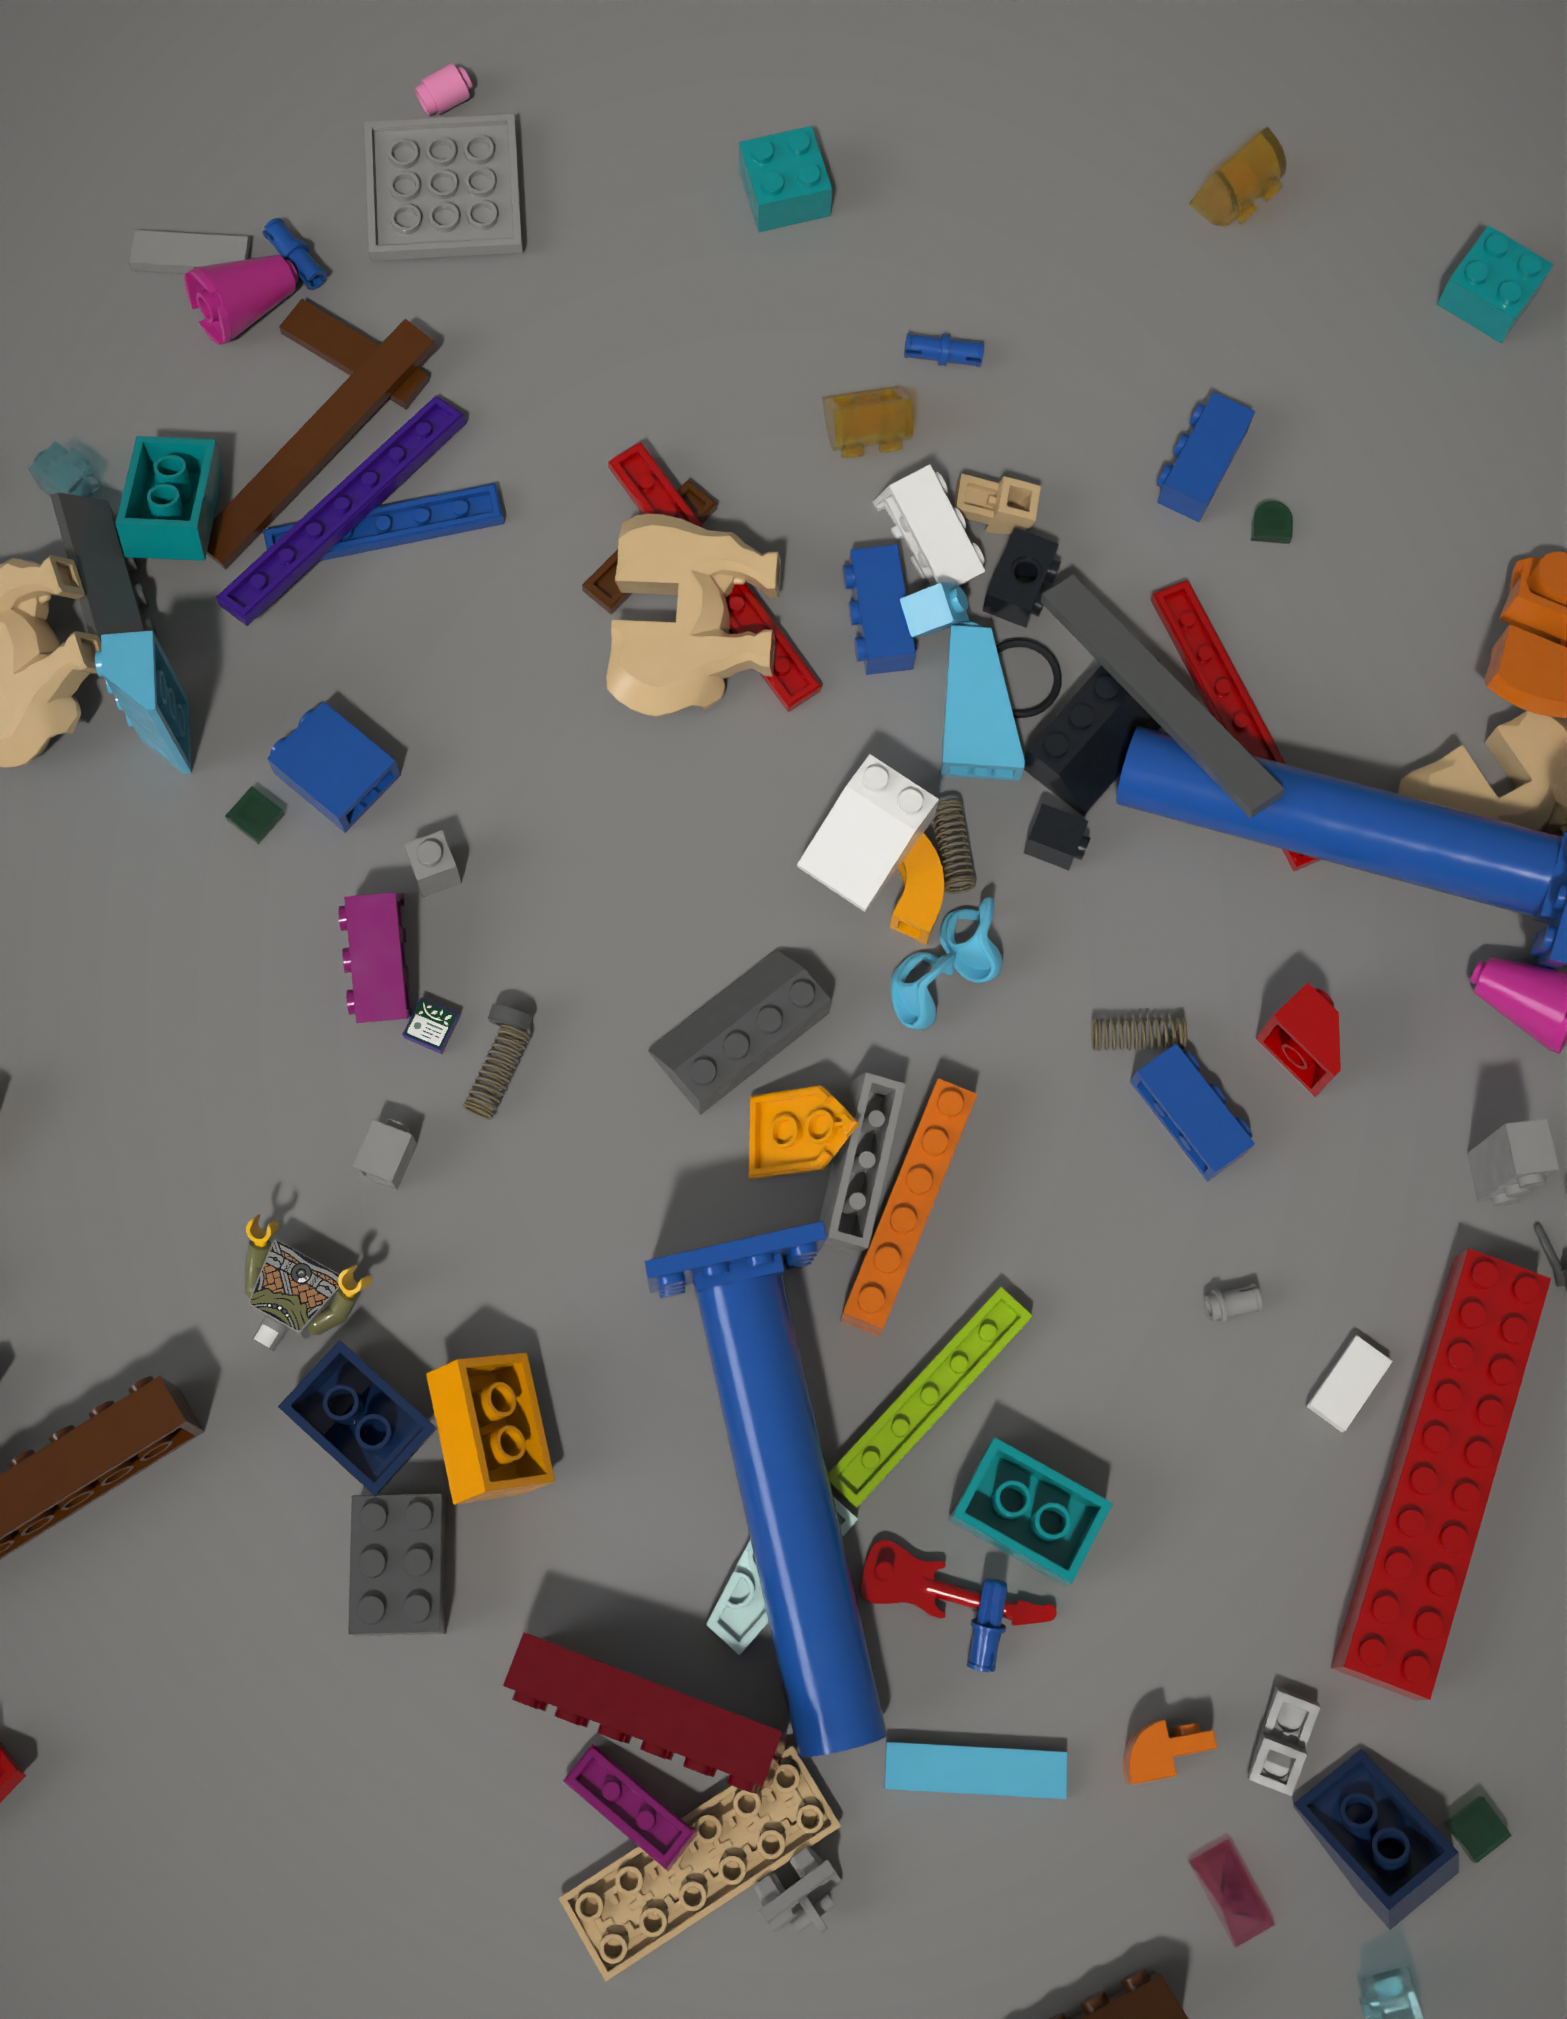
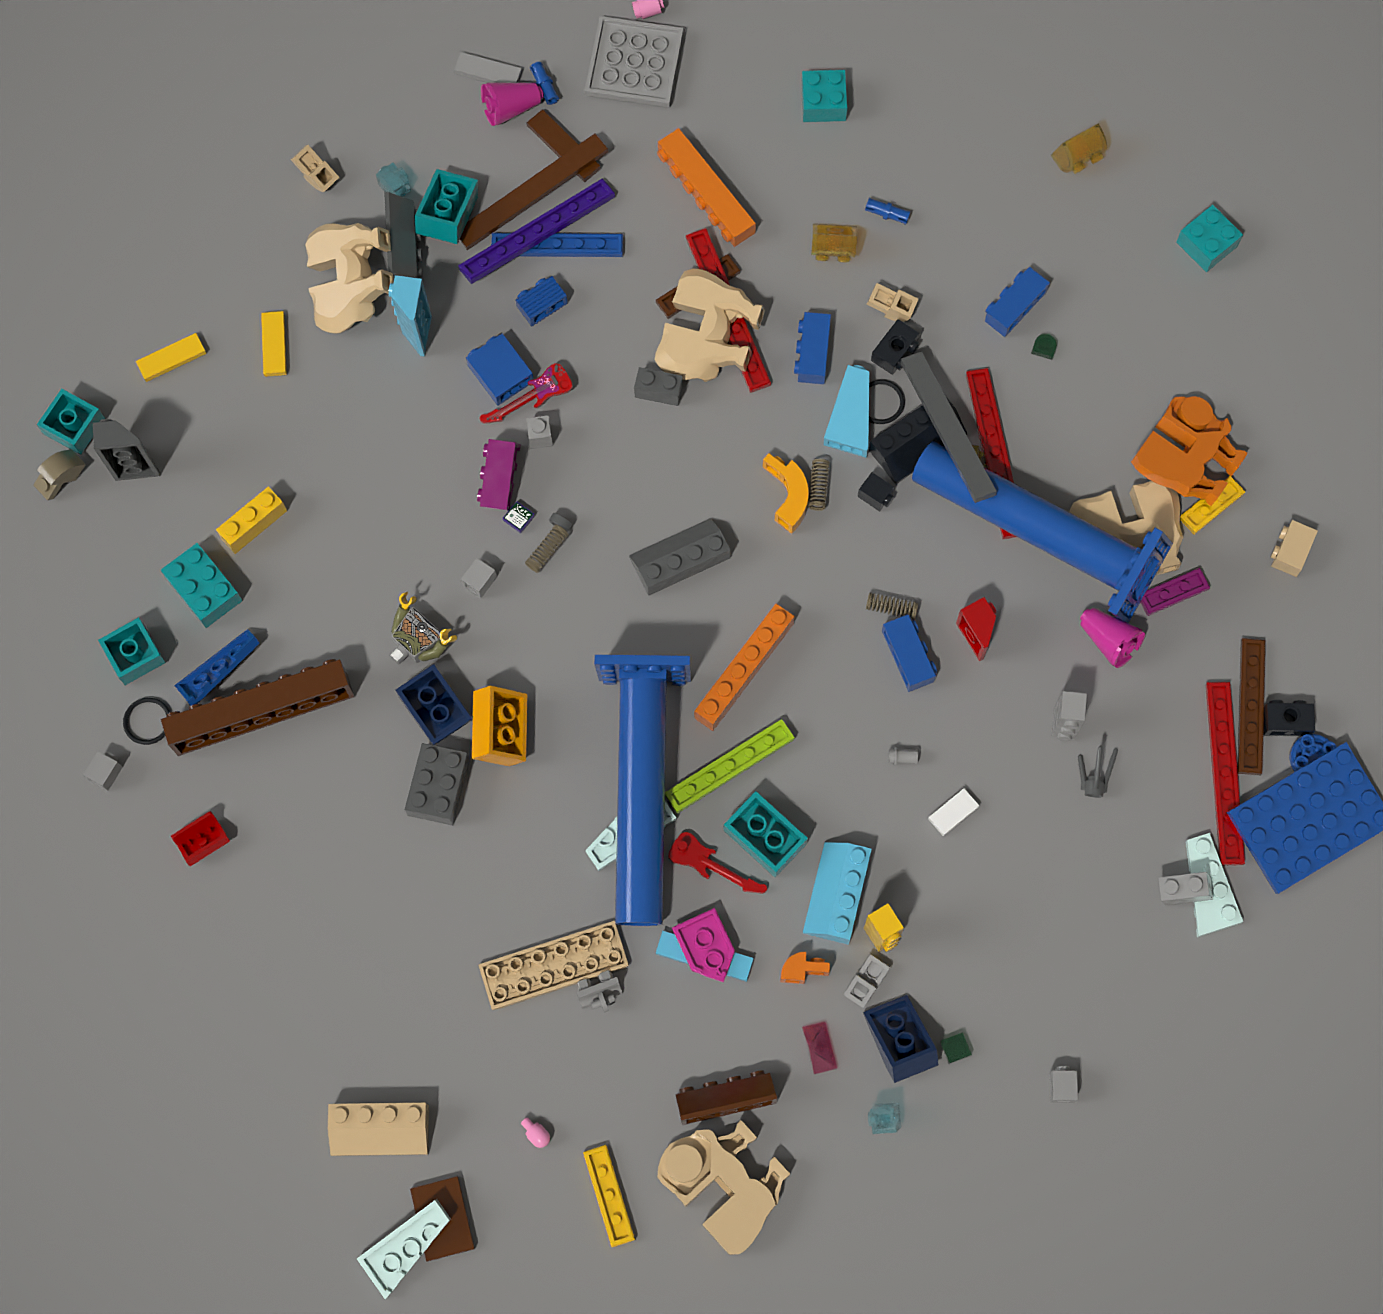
camera: 20 degrees right, 0 degrees up
(255, 815) = (452, 386): clear green tile -> none
(379, 629) = (541, 300): none -> blue brick
(434, 770) = (551, 383): none -> red piece
(622, 374) = (706, 188): none -> orange brick
(625, 735) = (658, 386): none -> dark grey brick
(630, 1807) = (524, 929): magenta tile -> none
(646, 1710) = (544, 882): dark red brick -> none
(796, 1131) = (694, 614): light orange tile -> none
(861, 1163) = (724, 638): light grey brick -> none
(868, 832) = (772, 466): white slope -> none
(912, 1000) = (774, 560): medium azure piece -> none
(931, 528) = (852, 311): white wedge -> none
(935, 609) = (841, 354): medium azure brick -> none
(975, 1751) = (706, 945): none -> dark pink tile
(978, 957) = (815, 545): medium azure piece -> none
(988, 1626) = (729, 885): blue axle -> none
(1186, 1586) = (837, 891): none -> medium azure slope
(1299, 1642) = (883, 928): none -> yellow brick
(1441, 1475) = (987, 867): red brick -> none

